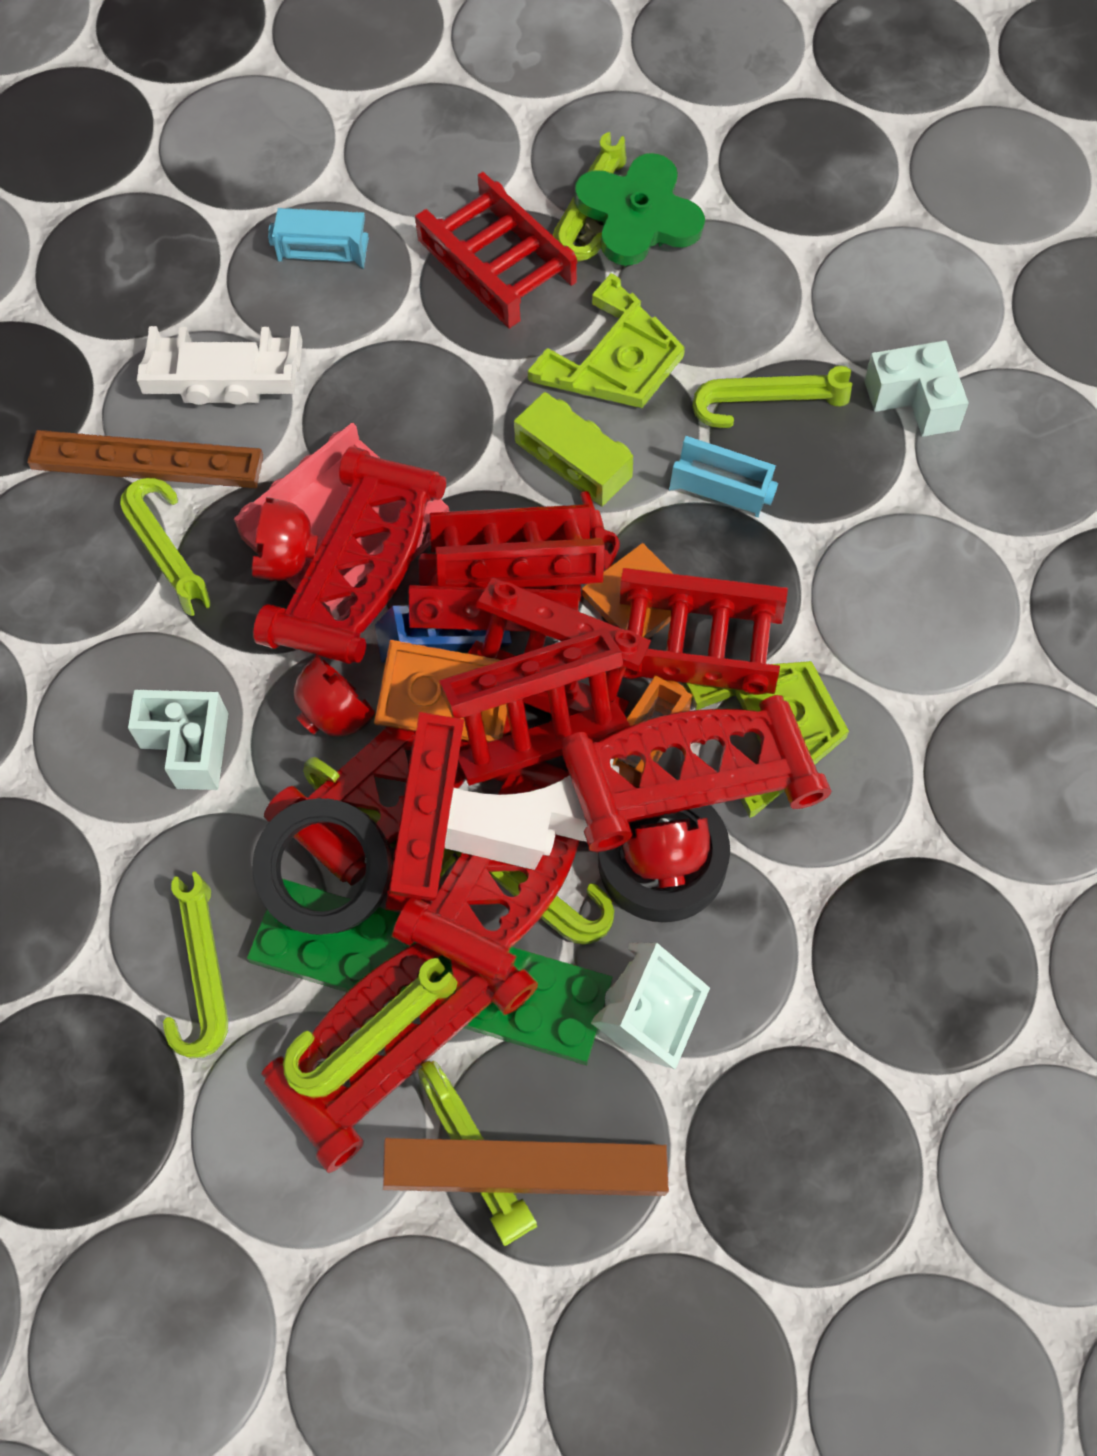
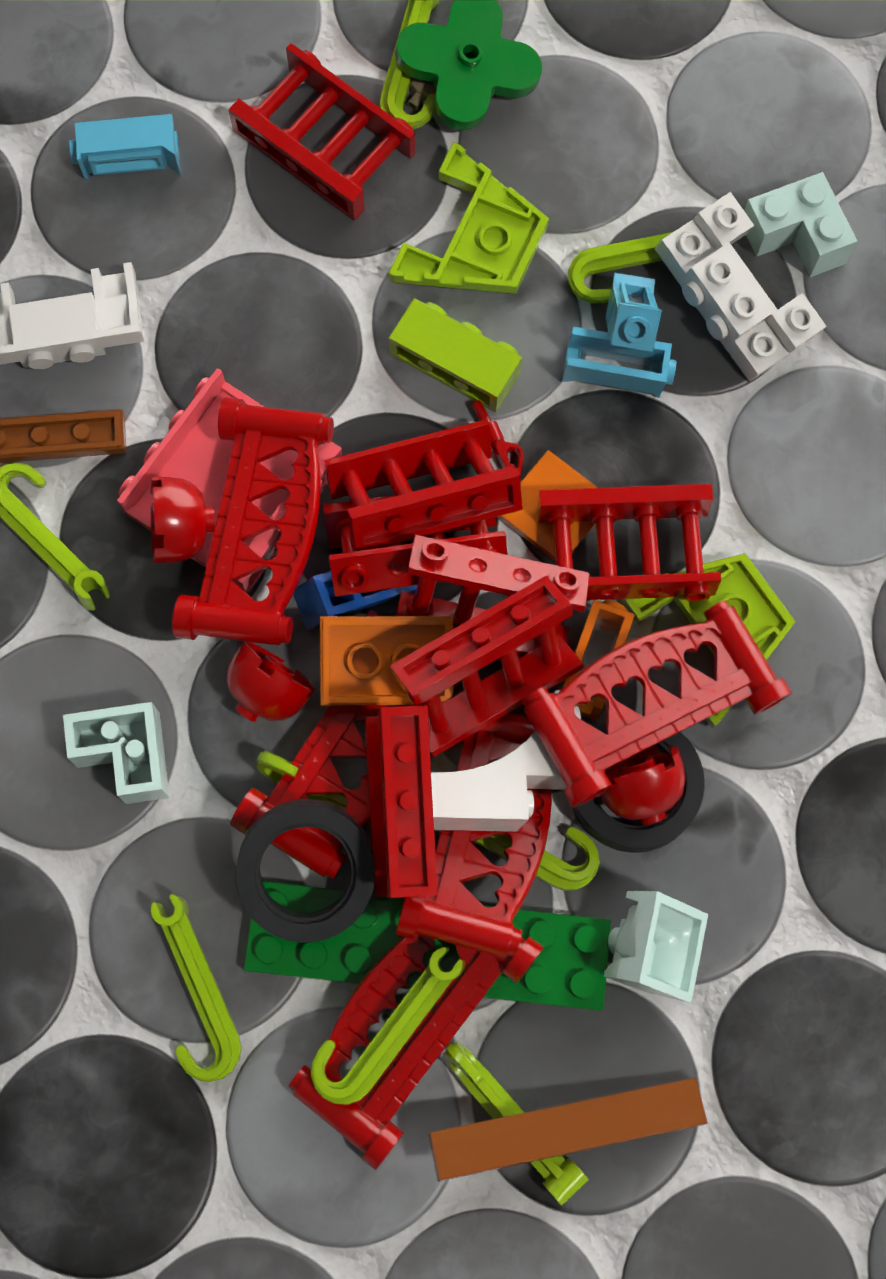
camera: 15 degrees left, 10 degrees up
(743, 430) = (632, 313): none -> medium azure window
(839, 434) = (728, 293): none -> white bracket

